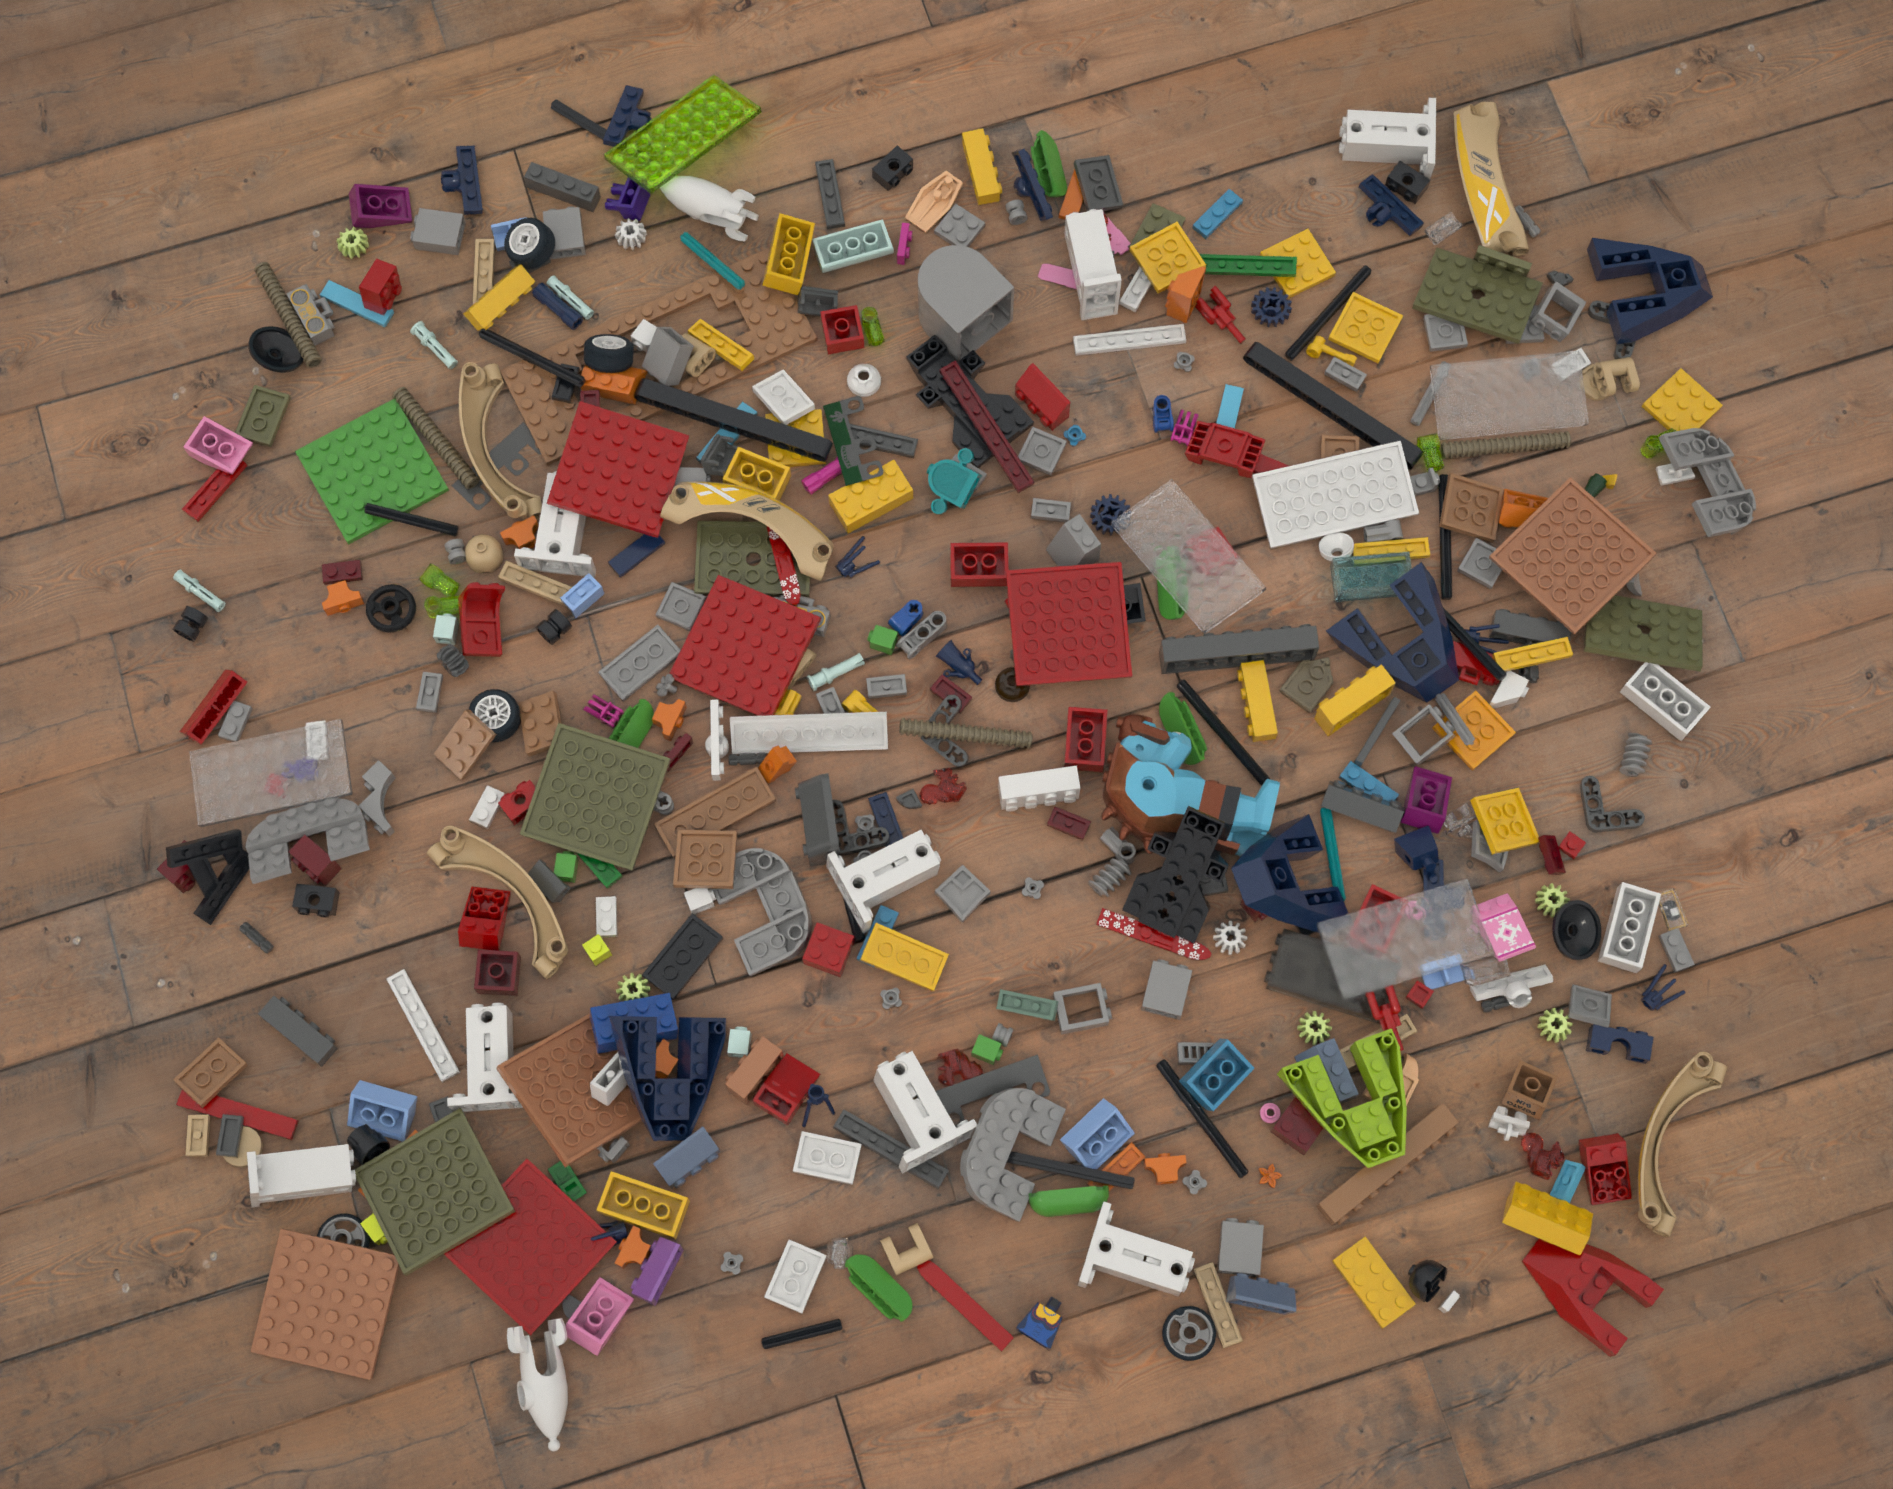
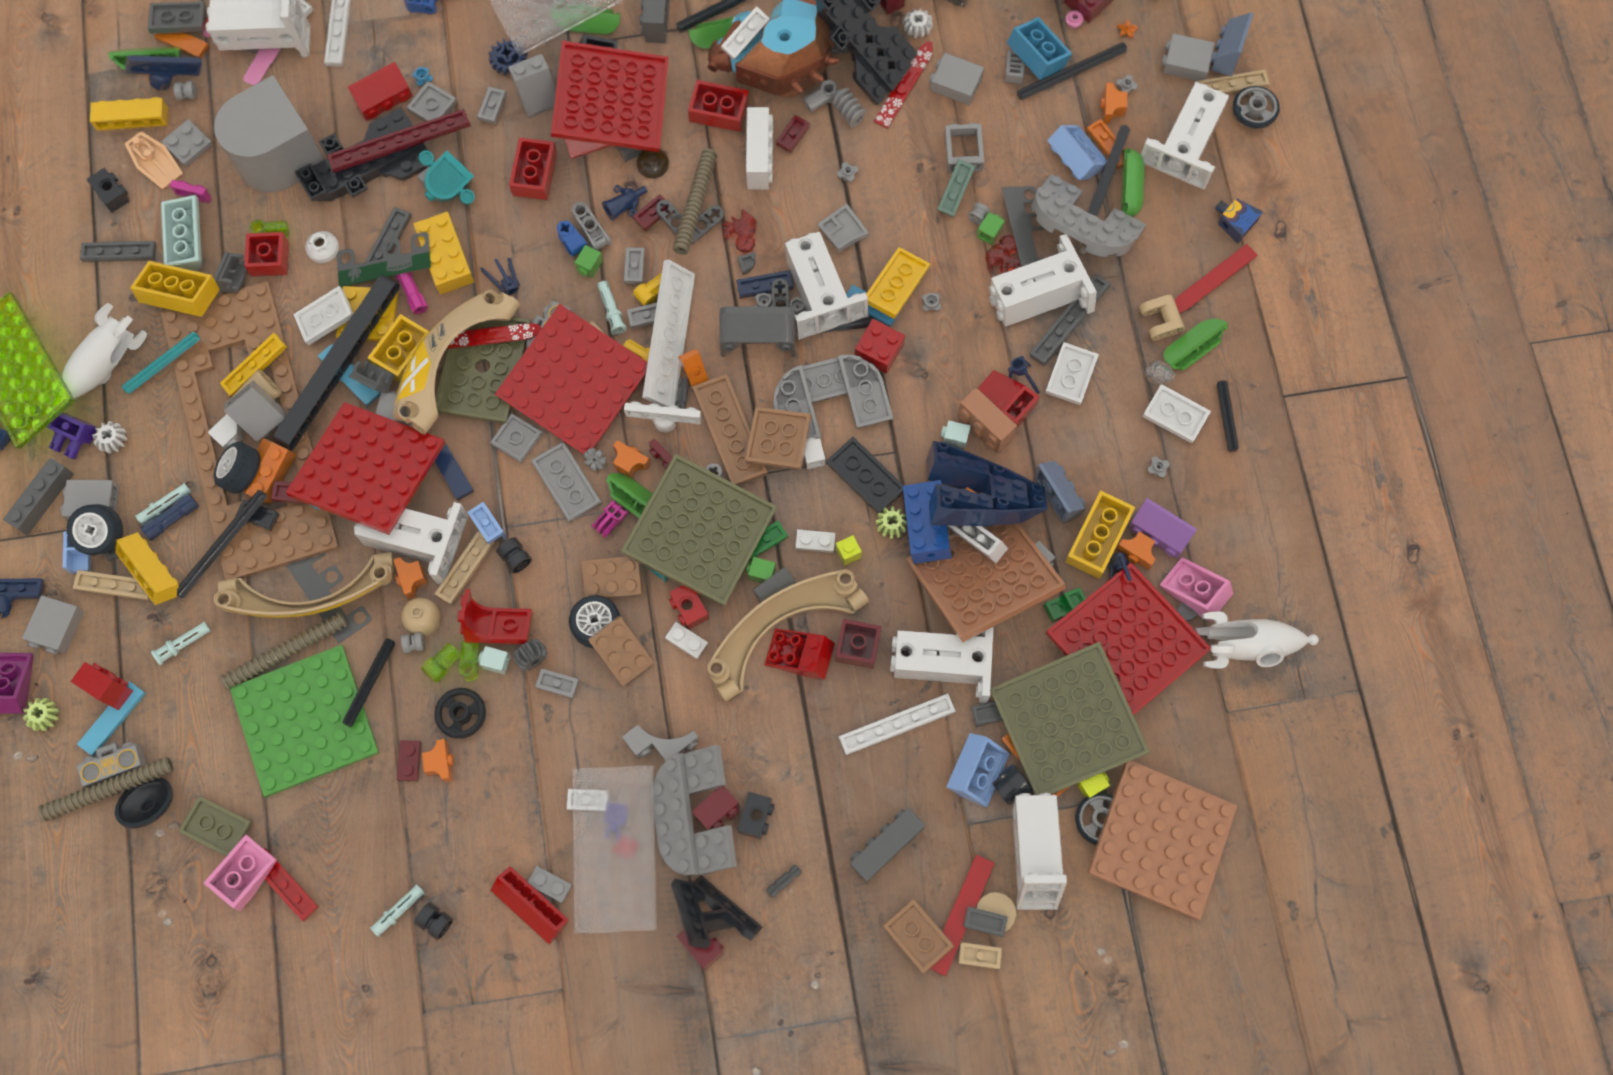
camera: 80 degrees left, 0 degrees up
(1152, 745) = (745, 33): none -> white plate

